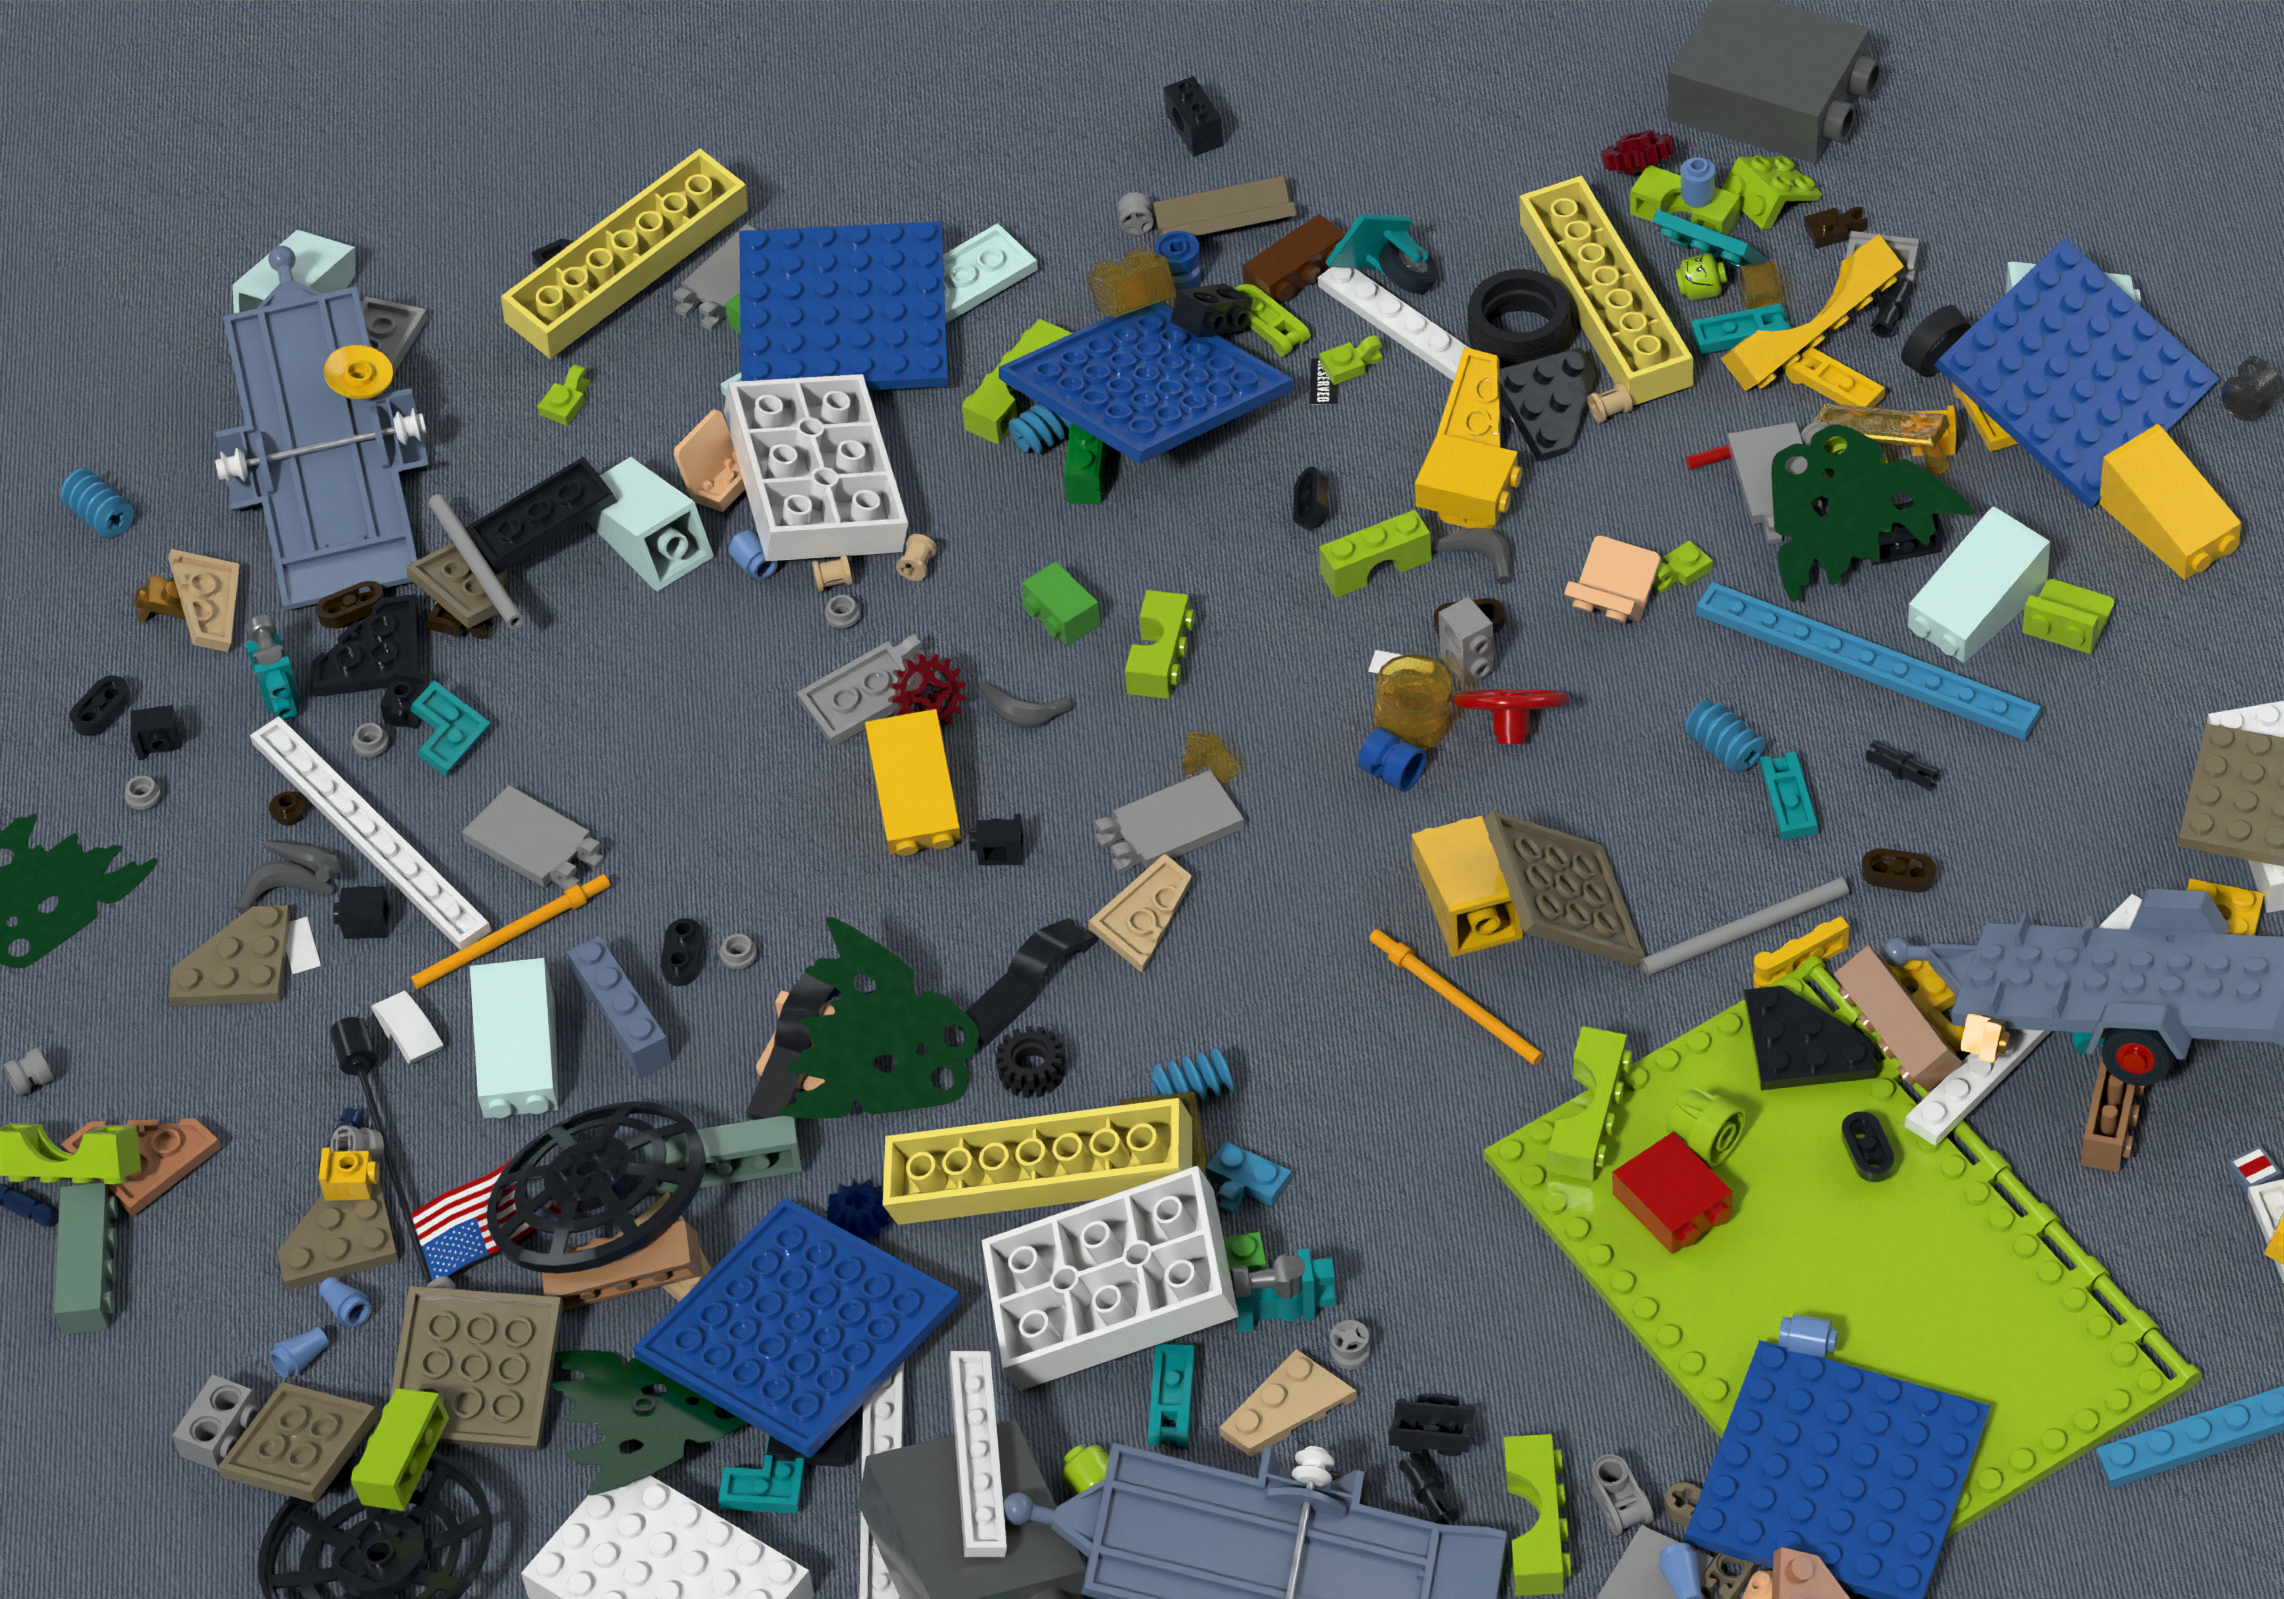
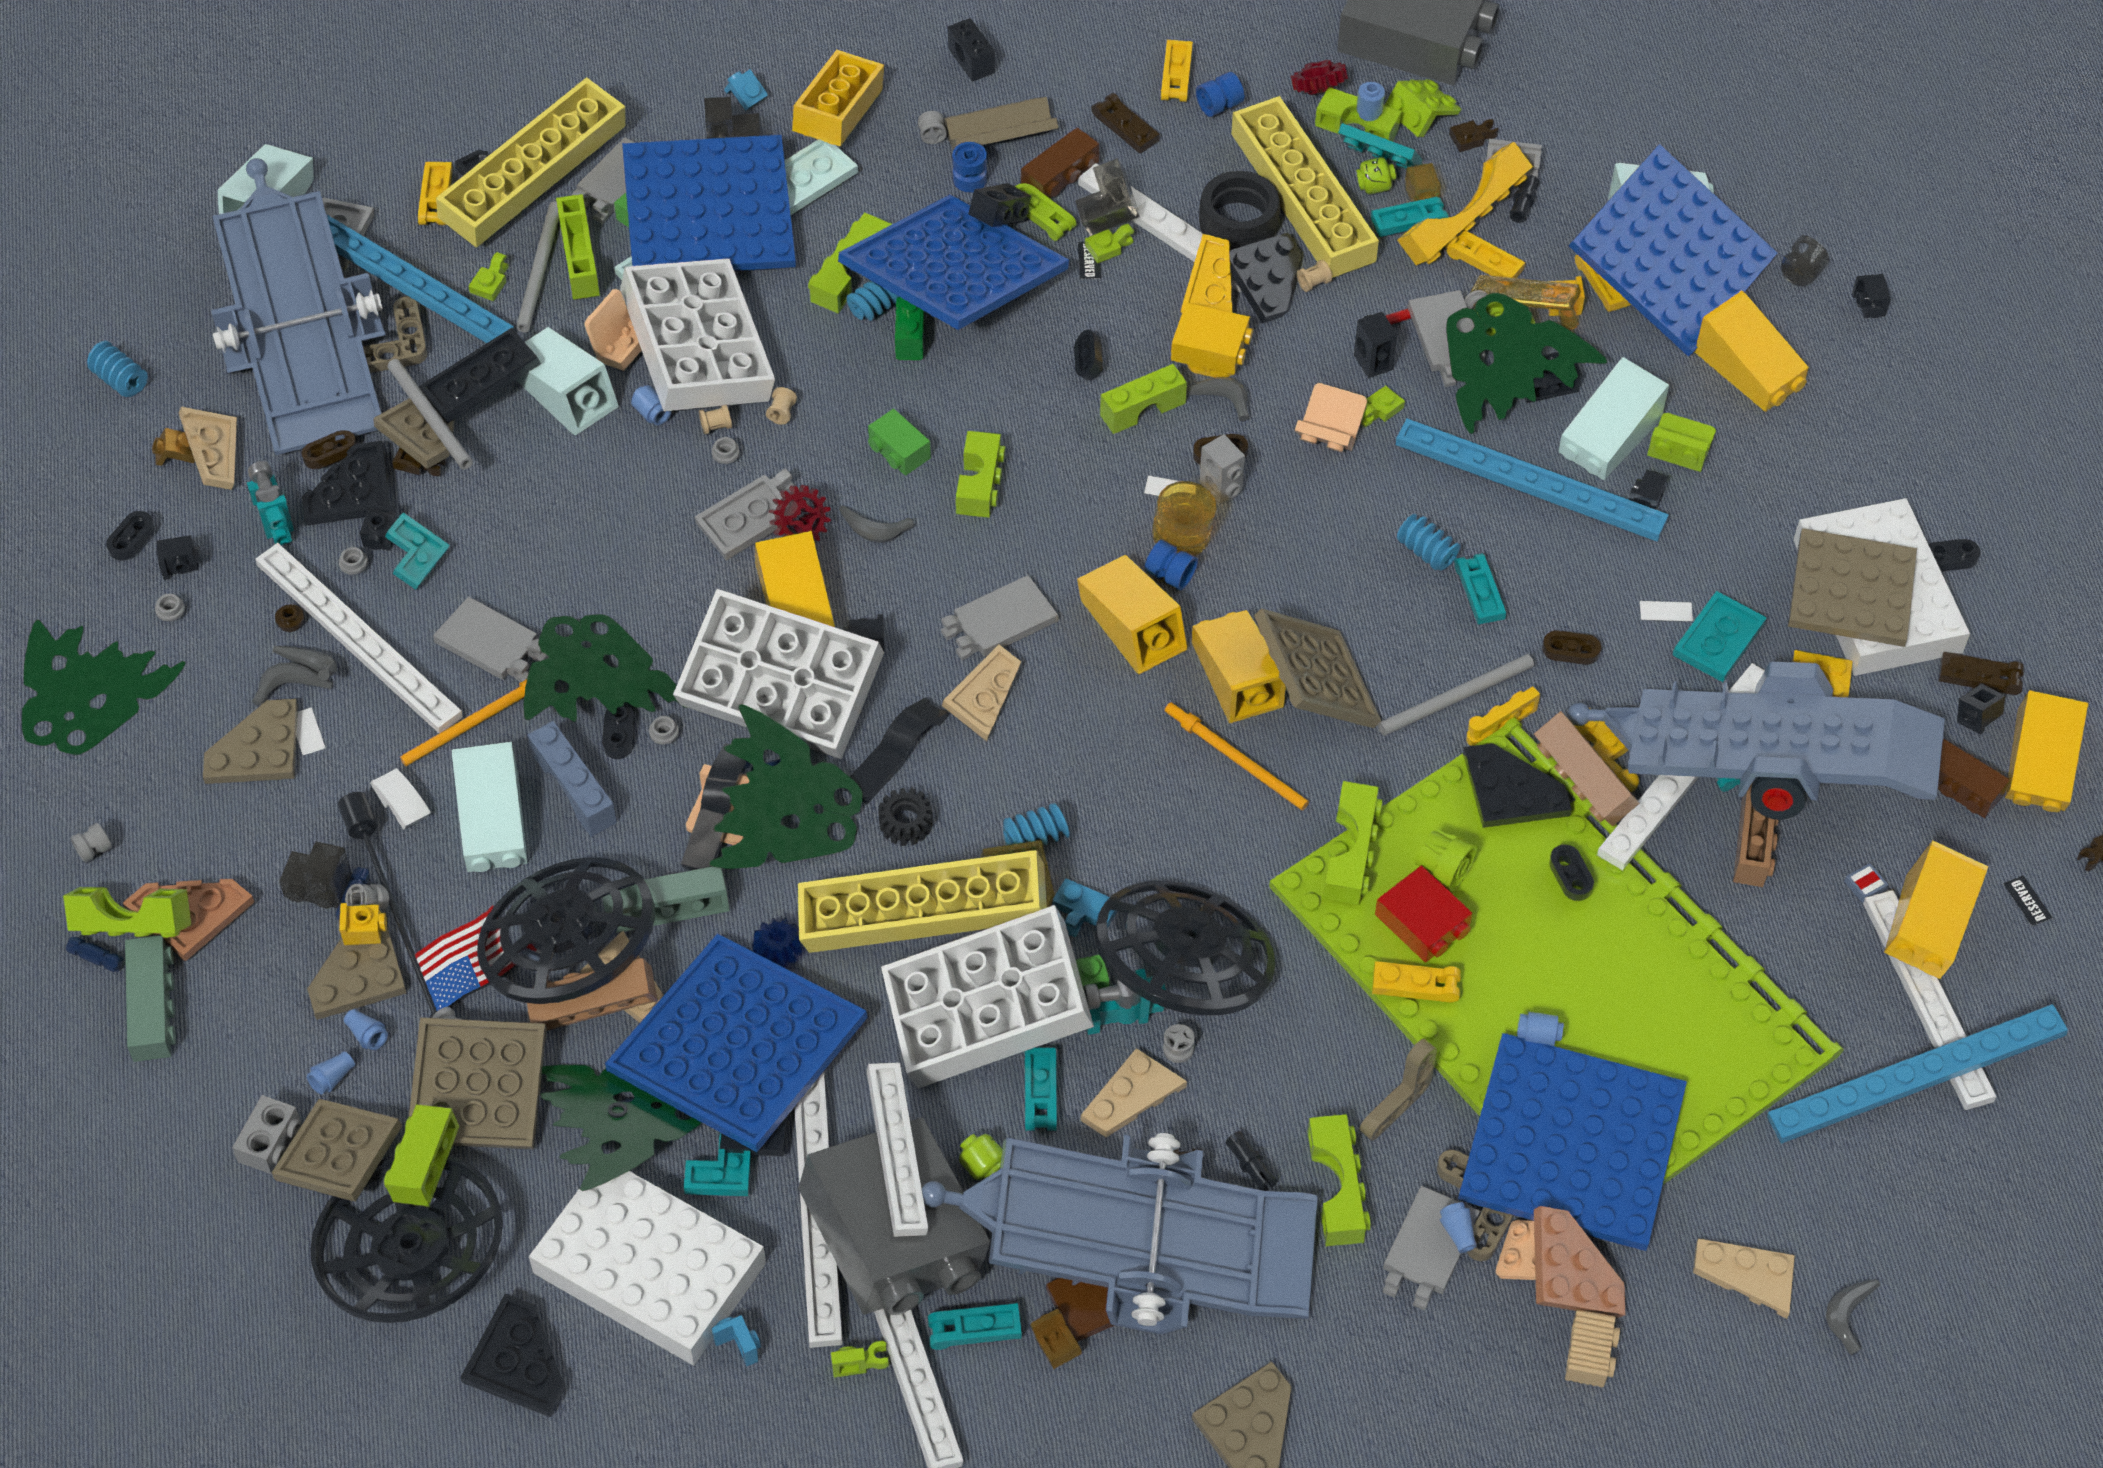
camera: 10 degrees left, 5 degrees up
(298, 1117) = (317, 876): none -> clear smoke brick
(358, 372) = (325, 260): yellow dish -> none
(362, 912) = (357, 703): black brick -> none
(449, 481) = (400, 348): none -> dark tan beam
(473, 403) = (416, 283): none -> dark azure plate
(505, 273) = (436, 180): none -> yellow plate
(627, 384) = (538, 269): none -> light grey piece
(649, 879) = (588, 673): none -> dark green piece
(676, 358) = (577, 246): none -> lime arch
(867, 206) = (723, 124): none -> clear smoke brick
(889, 874) = (782, 666): none -> white brick
(904, 164) = (746, 89): none -> dark azure bracket
(1017, 175) = (838, 98): none -> yellow brick
(1131, 282) = (934, 183): clear yellow brick -> none
(1210, 753) = (1026, 561): clear yellow piece -> none
(1339, 818) = (1134, 613): none -> yellow slope
(1348, 1216) = (1173, 939): none -> black dish
(1355, 309) = (1111, 204): none -> clear smoke brick
(1381, 202) = (1125, 123): none -> dark brown plate
(1385, 245) = (1136, 157): teal plate -> none
(1432, 1423) = (1250, 1108): black slope -> none
(1456, 143) = (1176, 70): none -> yellow plate
(1510, 708) = (1261, 522): red piece -> none
(1512, 171) = (1220, 93): none -> blue wheel
(1622, 1500) = (1404, 1167): light grey piece -> none
(1642, 1403) = (1415, 1082): none -> dark tan beam
(1656, 1276) = (1416, 981): none -> yellow plate
(1678, 488) = (1375, 344): none -> black brick
(1902, 765) = (1566, 563): black pin -> none
(1918, 345) = (1563, 226): black tyre -> none
(1985, 1037) = (1657, 783): bracket -> none
(2018, 675) = (1649, 489): none -> black brick
(2028, 827) = (1666, 611): none -> white sticker
(2092, 859) = (1719, 636): none -> teal plate

